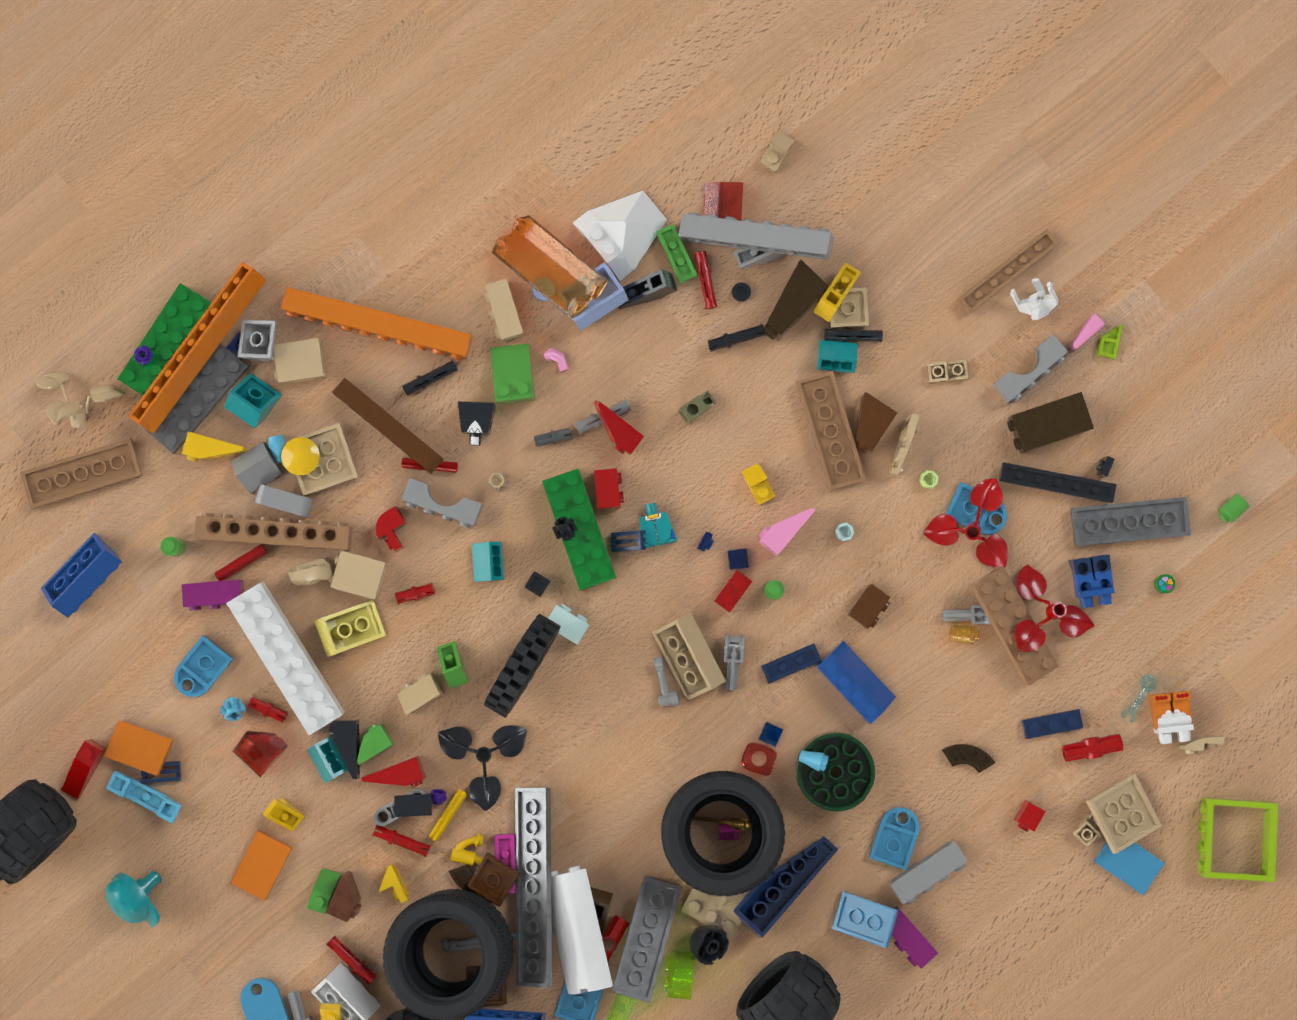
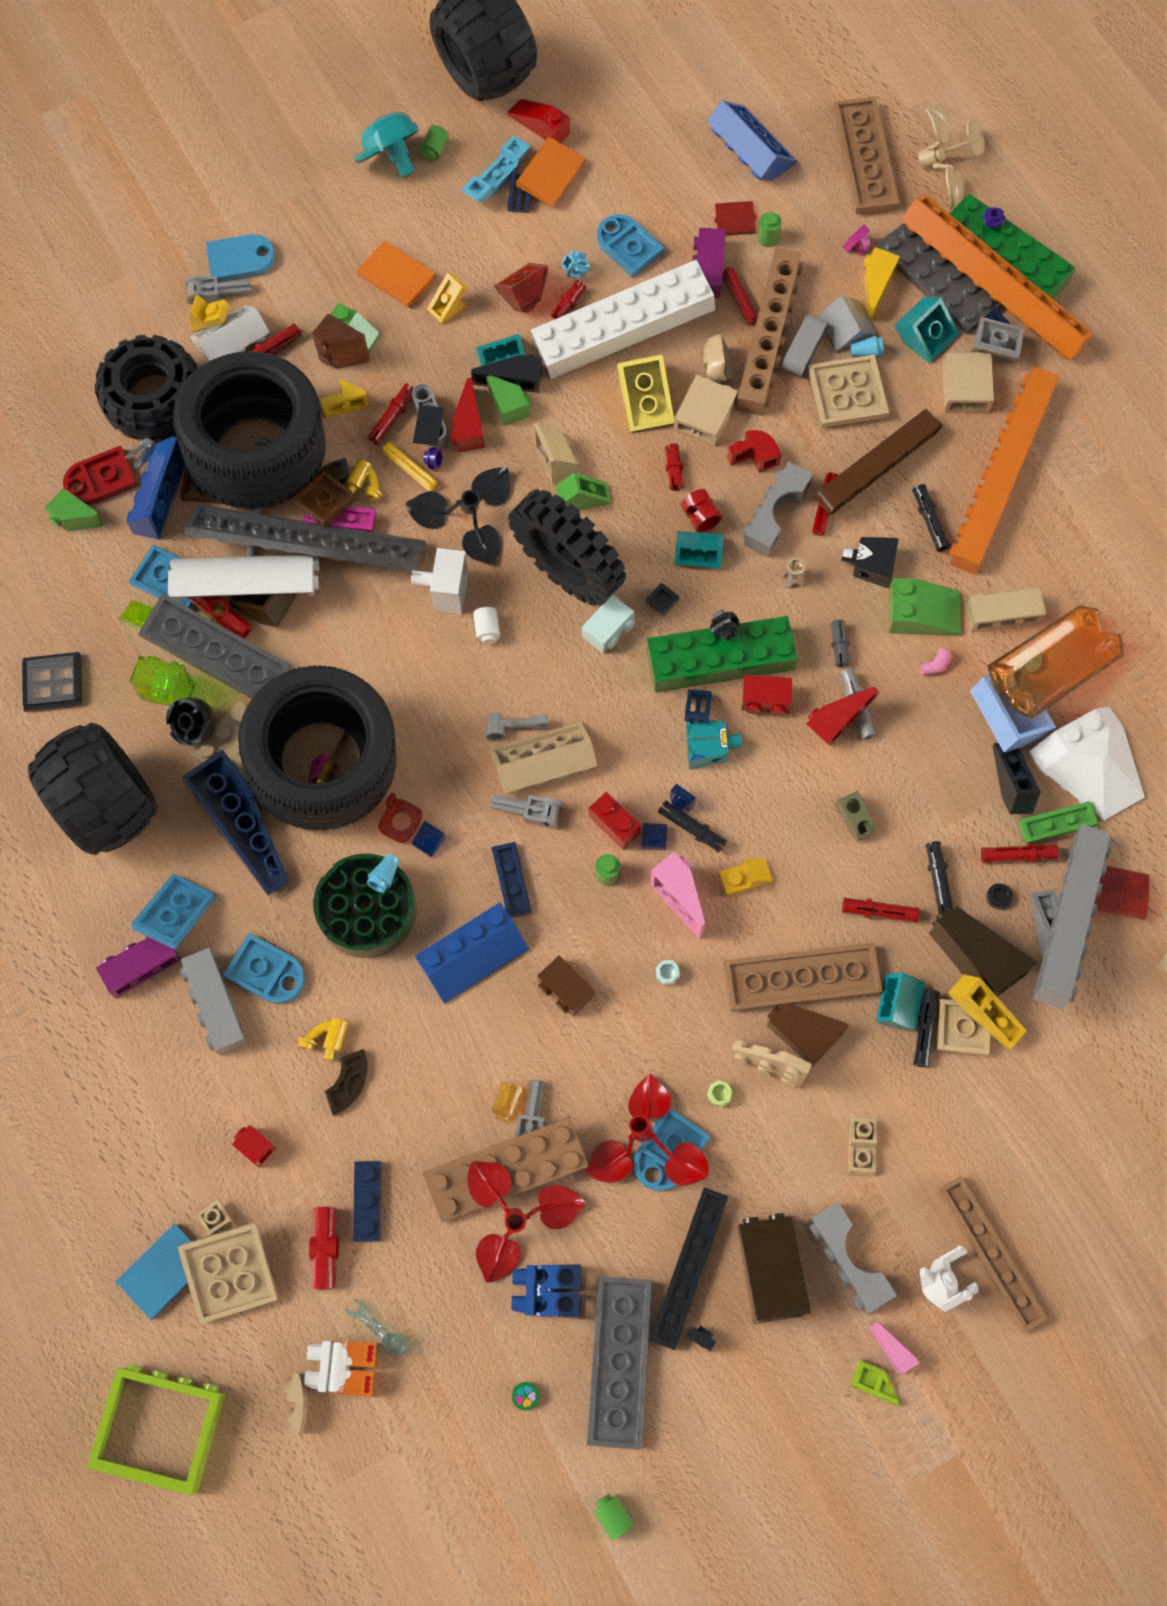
camera: 100 degrees right, 15 degrees down
(123, 859) = (434, 143): none -> bright green brick
(161, 578) = (736, 217): none -> clear red piece
(172, 469) = (858, 241): none -> dark pink tile
(300, 456) = (855, 365): yellow dish -> none
(454, 564) = (701, 511): none -> red wheel
(553, 761) = (446, 581): none -> white brick
(584, 722) = (486, 625): none -> white brick
(726, 530) = (692, 826): none -> black pin
(768, 380) = (854, 906): none -> red pin
(934, 773) = (334, 1039): none -> yellow plant

